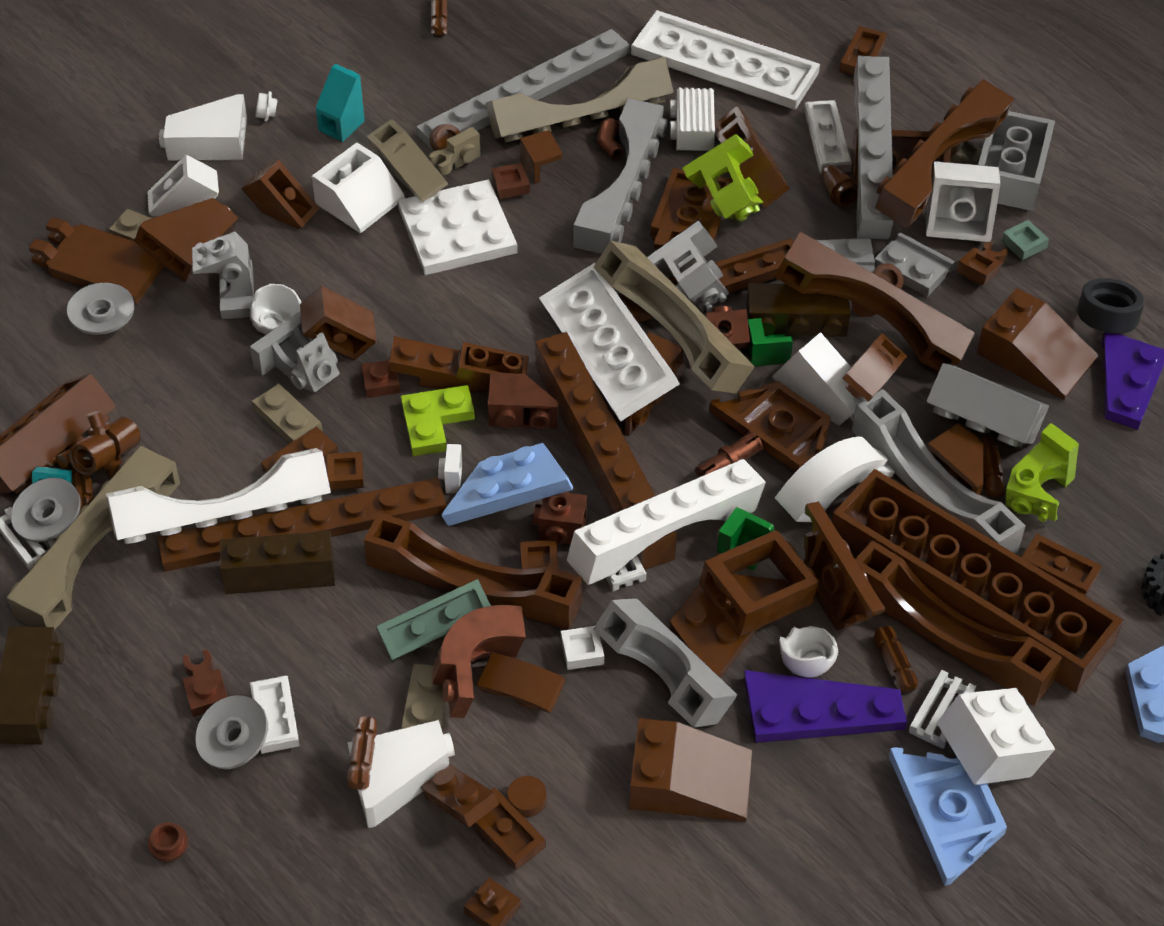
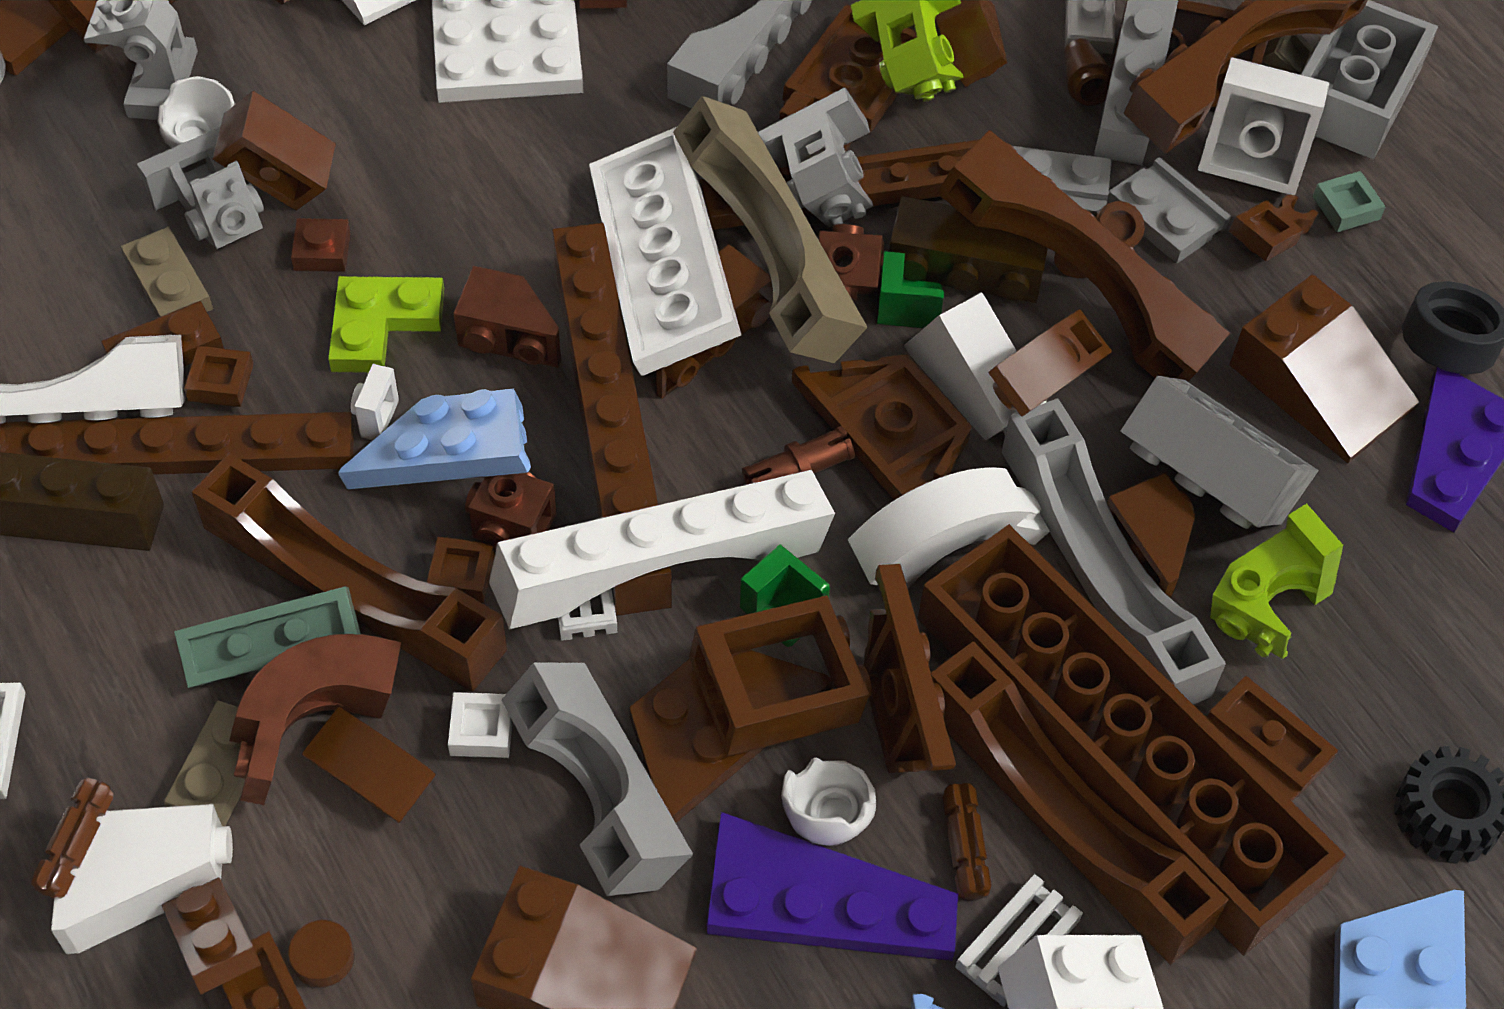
camera: 10 degrees right, 5 degrees up
(448, 367) = (424, 246): reddish brown slope -> none
(992, 467) = (1204, 551): reddish brown axle -> none

